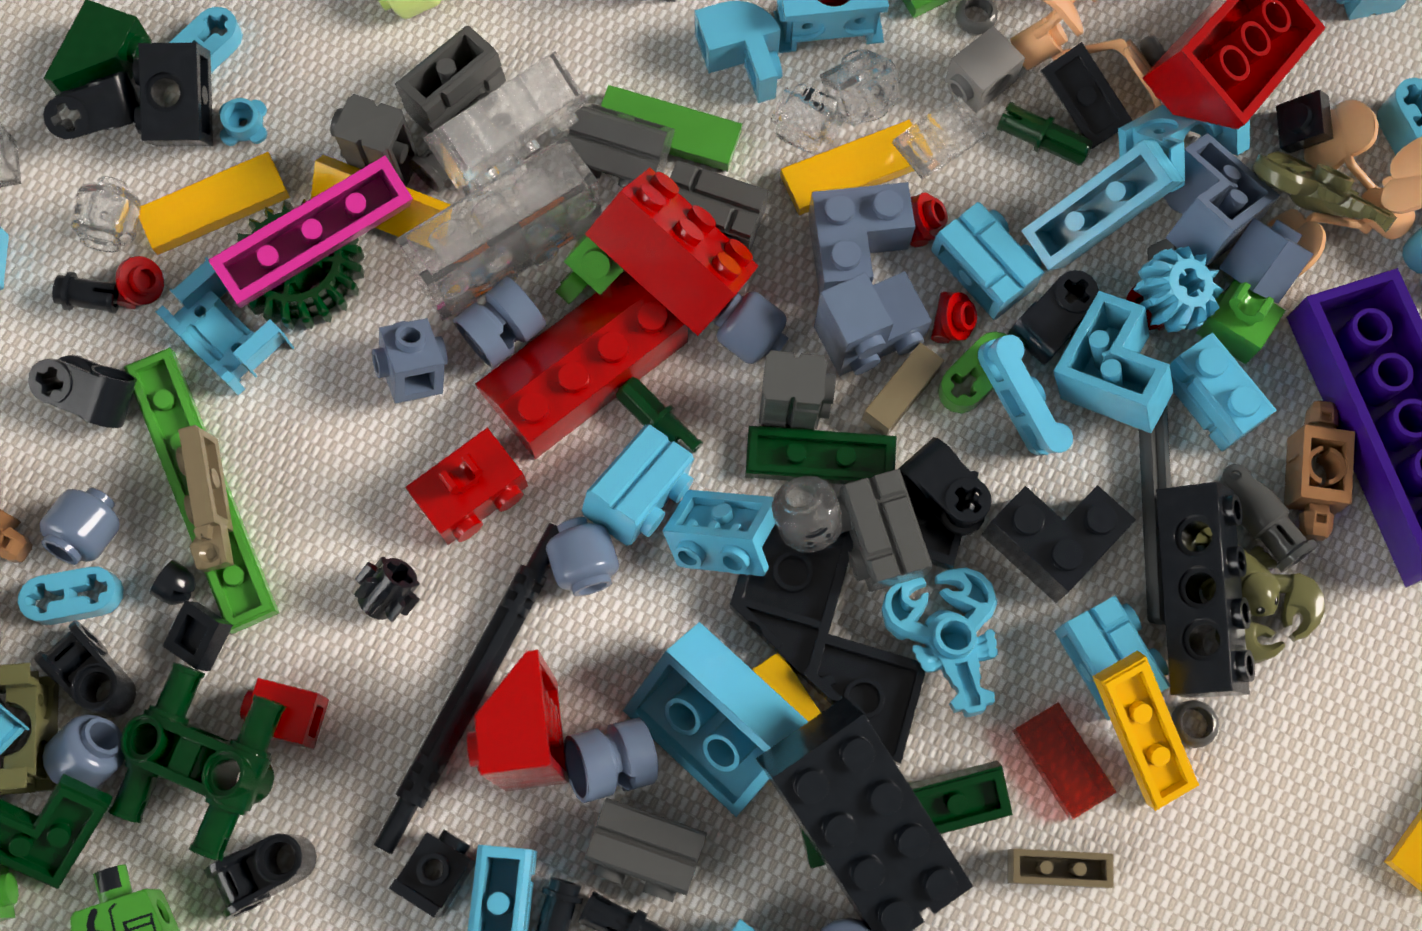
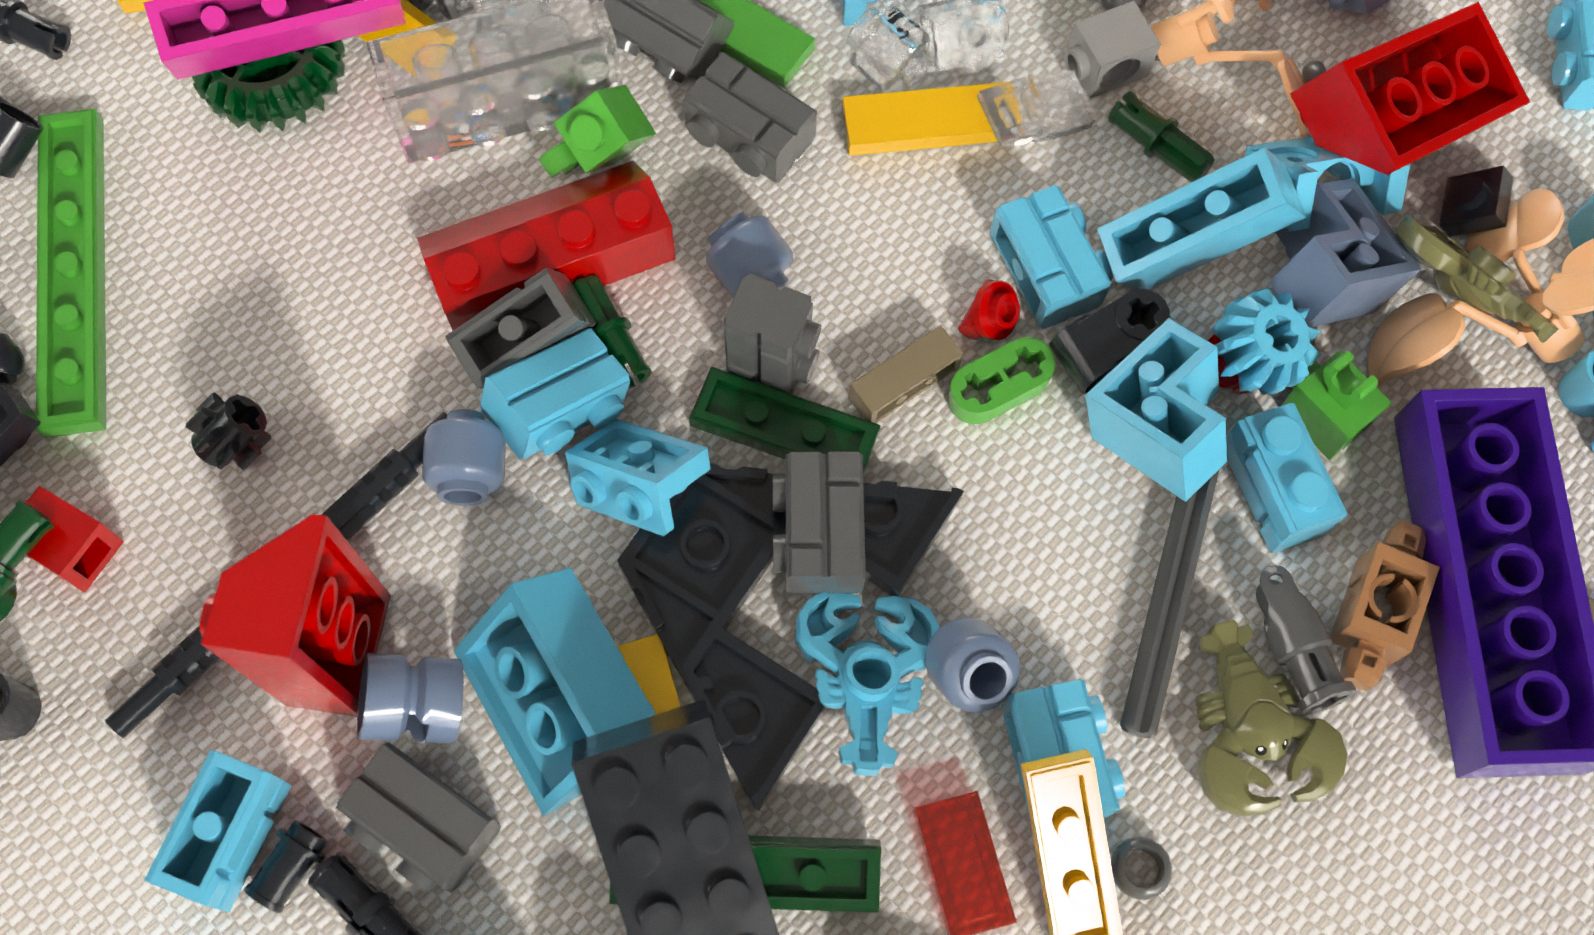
camera: 15 degrees right, 5 degrees down
(138, 282) = (89, 32): red plate -> none
(207, 498) = (64, 273): dark tan hinge -> none
(218, 334) = (153, 106): medium azure piece -> none
(410, 360) = (352, 177): sand blue brick -> none
(438, 894) = (158, 799): black brick -> none
(468, 487) = (362, 345): red brick -> none
(500, 322) = (485, 179): sand blue wheel -> none
(595, 442) = (520, 325): none -> dark grey brick
(672, 249) = (678, 137): red brick -> none
(807, 513) = (736, 475): clear head -> none
(855, 223) = (902, 177): sand blue brick -> none
(870, 321) = (886, 286): sand blue brick -> none
(929, 218) = (990, 188): red plate -> none
(940, 482) = (910, 486): black piece -> none
(1023, 396) = (1042, 417): medium azure plate -> none
(1027, 607) = (972, 664): none -> sand blue head
(1056, 550) = (1034, 605): black brick -> none
(1086, 95) = (1221, 103): black plate -> none
(1181, 517) = (1179, 672): black brick -> none
(1267, 258) = (1386, 336): sand blue brick -> none

